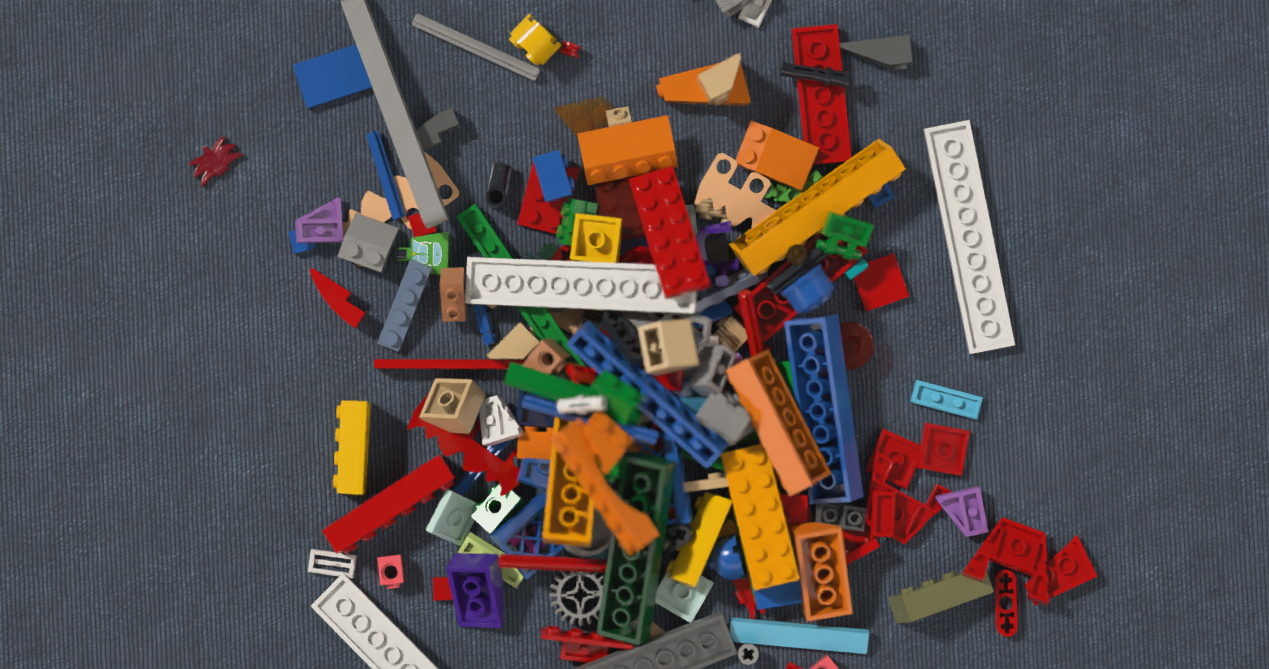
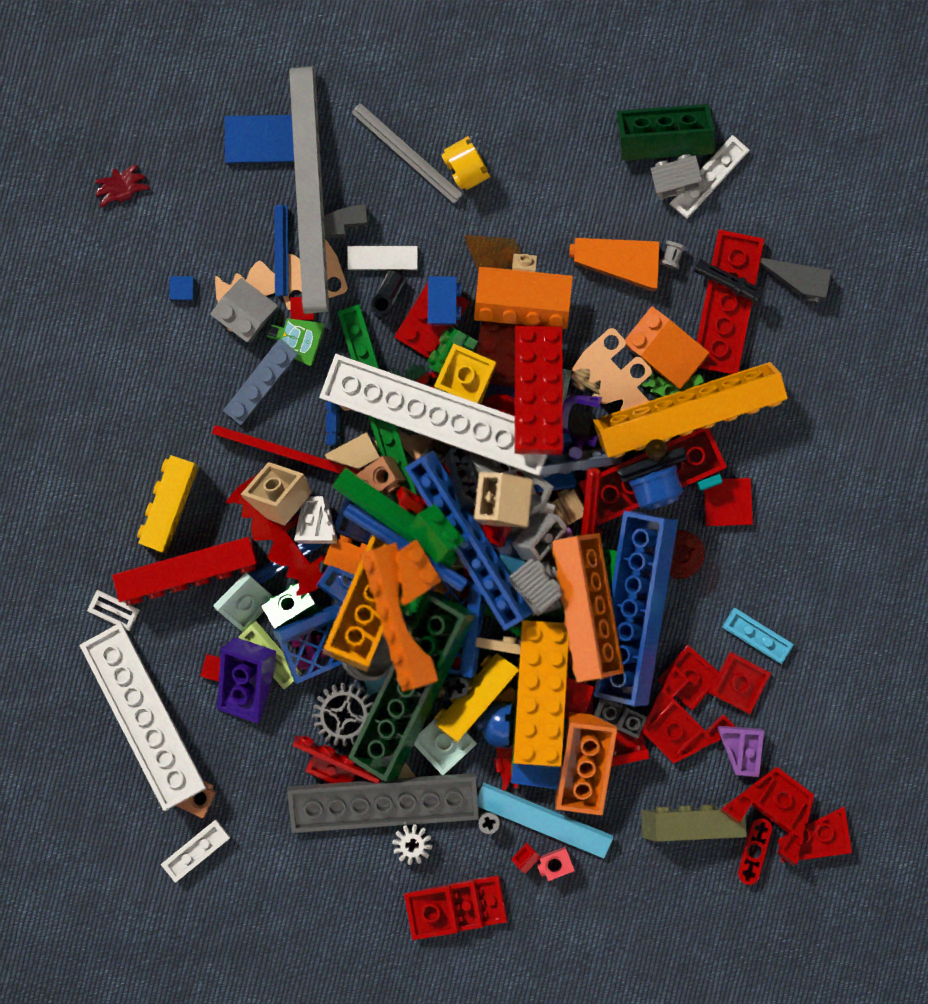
camera: 20 degrees right, 0 degrees up
(321, 225) = (204, 279): medium lavender wing -> none
(337, 299) = (197, 356): red slope -> none
(383, 563) = (176, 627): coral brick -> none
(453, 294) = (310, 385): nougat brick -> none
(483, 153) = (382, 258): none -> white tile
(552, 563) = (326, 676): red axle -> none
(567, 405) = (415, 533): white pin -> none
(570, 49) = (497, 184): red bush -> none
(718, 80) = (632, 256): tan slope -> none
(755, 66) = (672, 255): none -> light grey bush
(848, 229) = (711, 439): green plate -> none
(882, 196) = (755, 419): blue tile -> none
(882, 513) = (661, 727): red tile -> none
(969, 237) = (828, 484): white plate -> none

